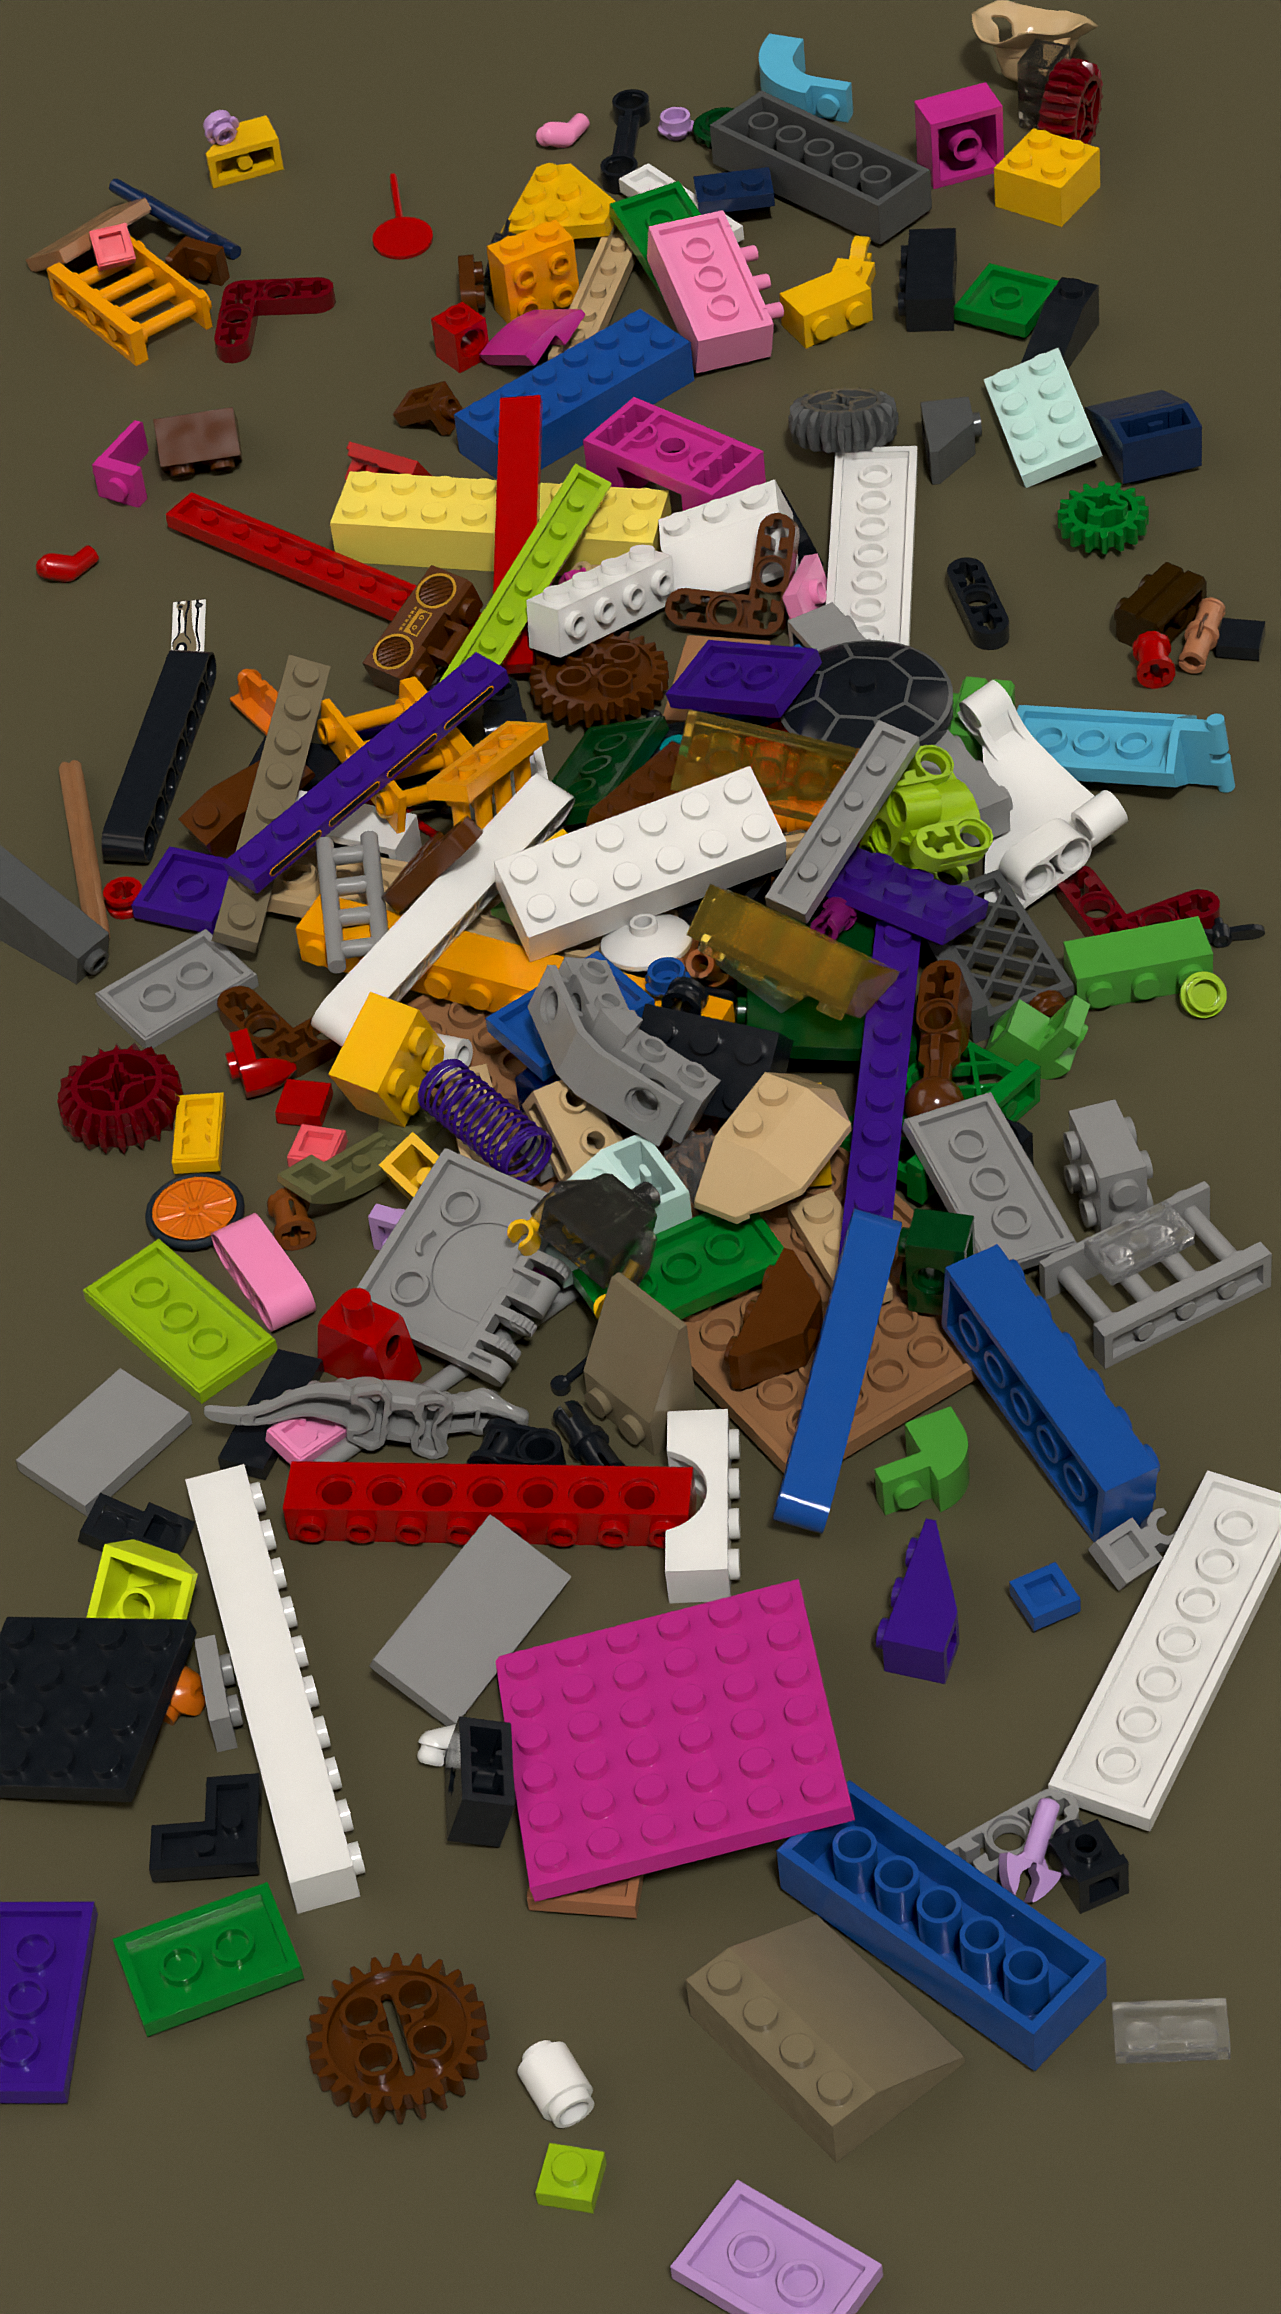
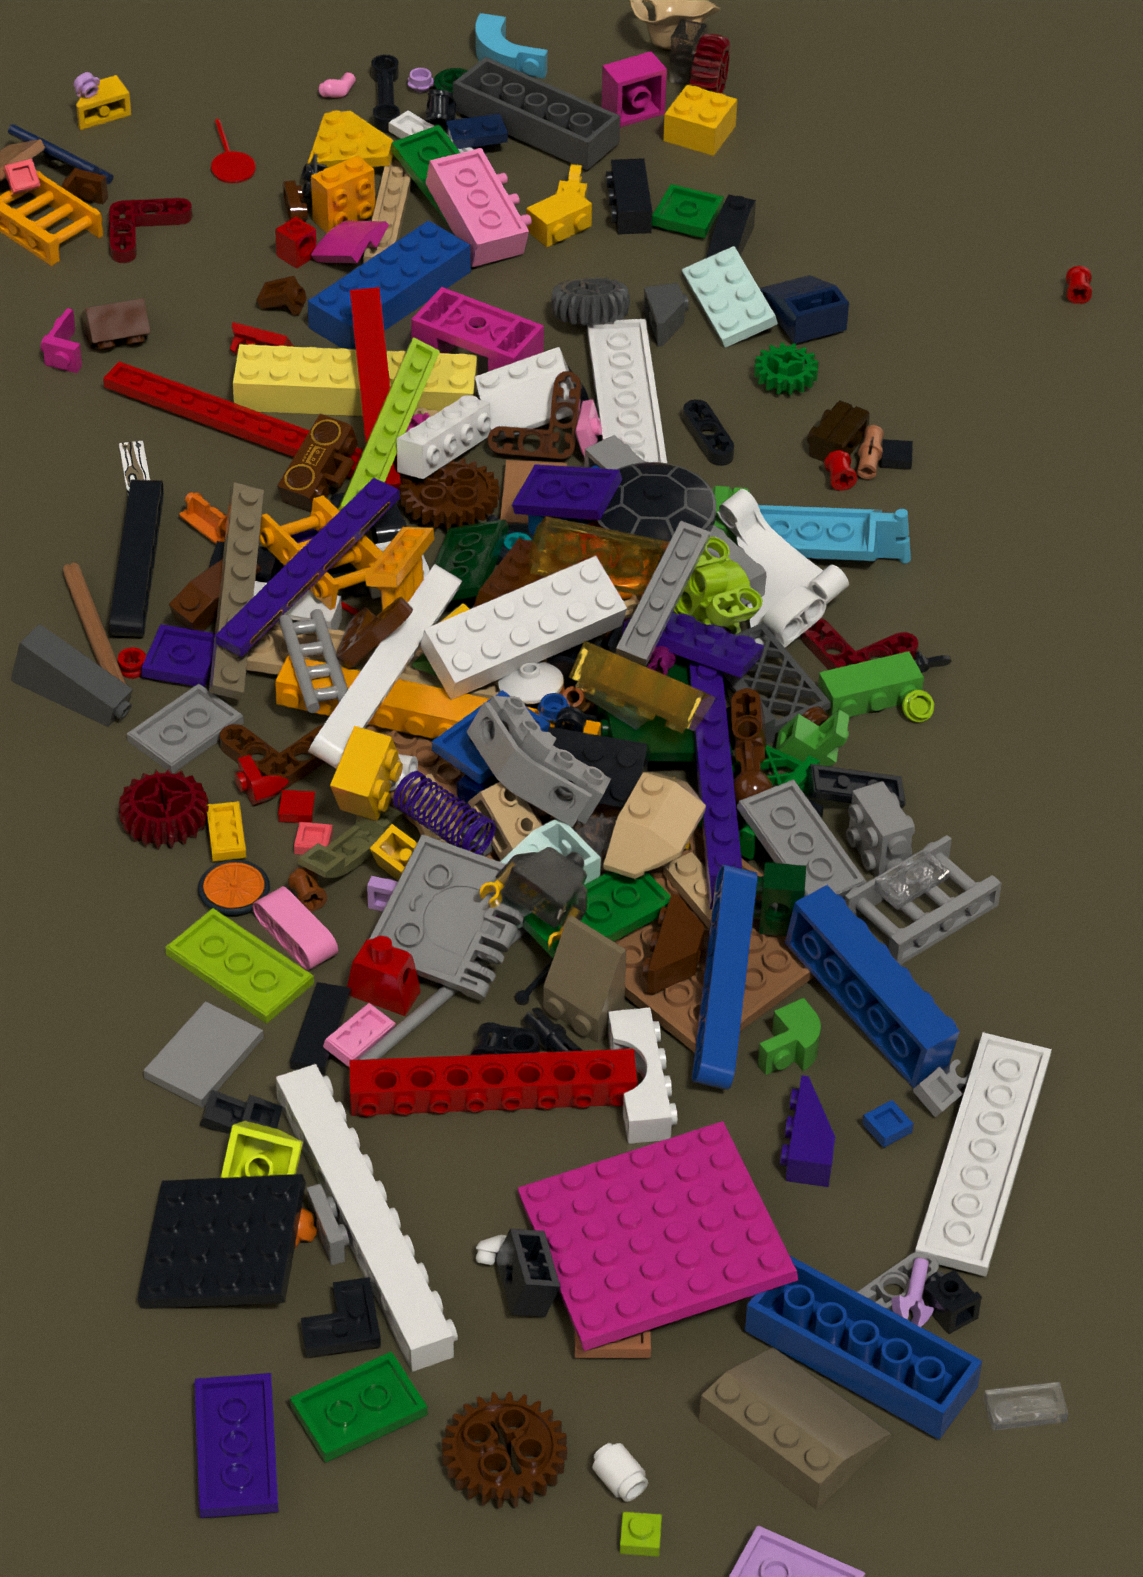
camera: 15 degrees left, 0 degrees up
(66, 567) = (33, 419): red arm -> none
(381, 1411) = (403, 1022): light grey animal -> none
(468, 1620) = (496, 1164): light grey tile -> none
(691, 158) = (440, 107): none -> black piece
(1050, 1098) = (839, 783): none -> black tile

